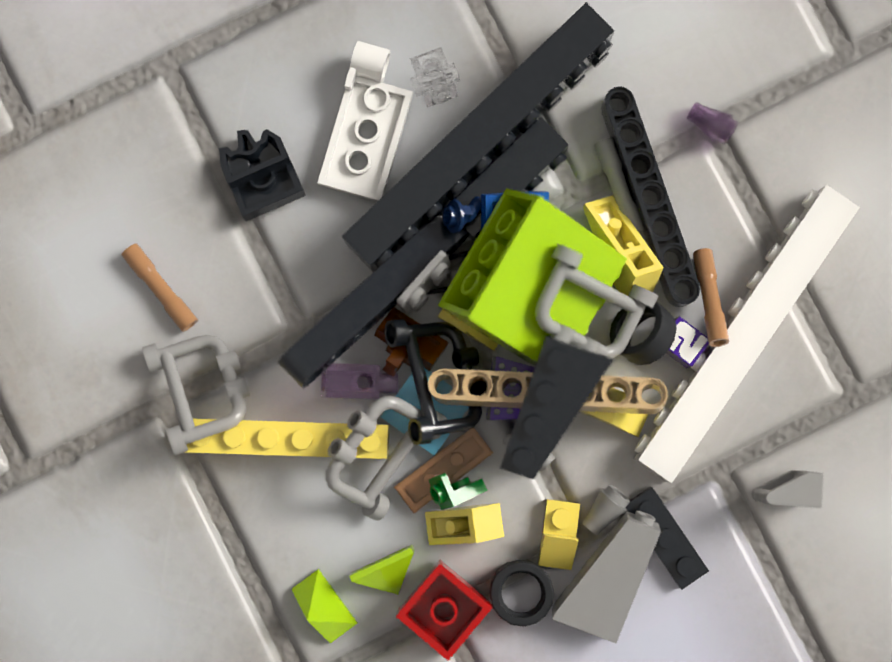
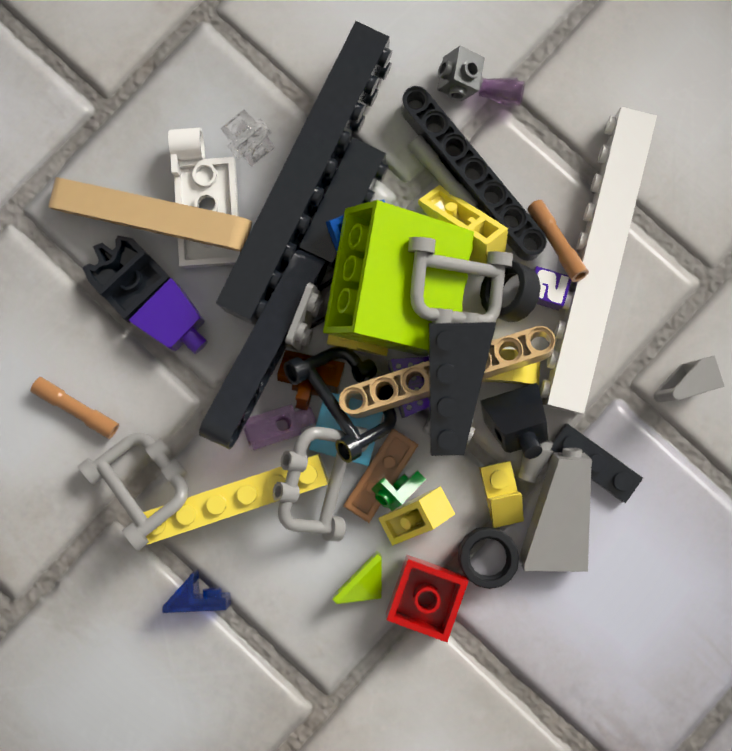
camera: 20 degrees left, 0 degrees up
(204, 522) = (189, 599): none -> clear blue slope
(290, 233) = (171, 319): none -> dark purple torso
(307, 120) = (150, 214): none -> tan beam
(323, 606) = (320, 634): lime slope -> none
(457, 215) = (311, 247): dark blue plate -> none
(601, 465) = (517, 420): none -> black torso
(675, 91) = (460, 73): none -> dark grey brick

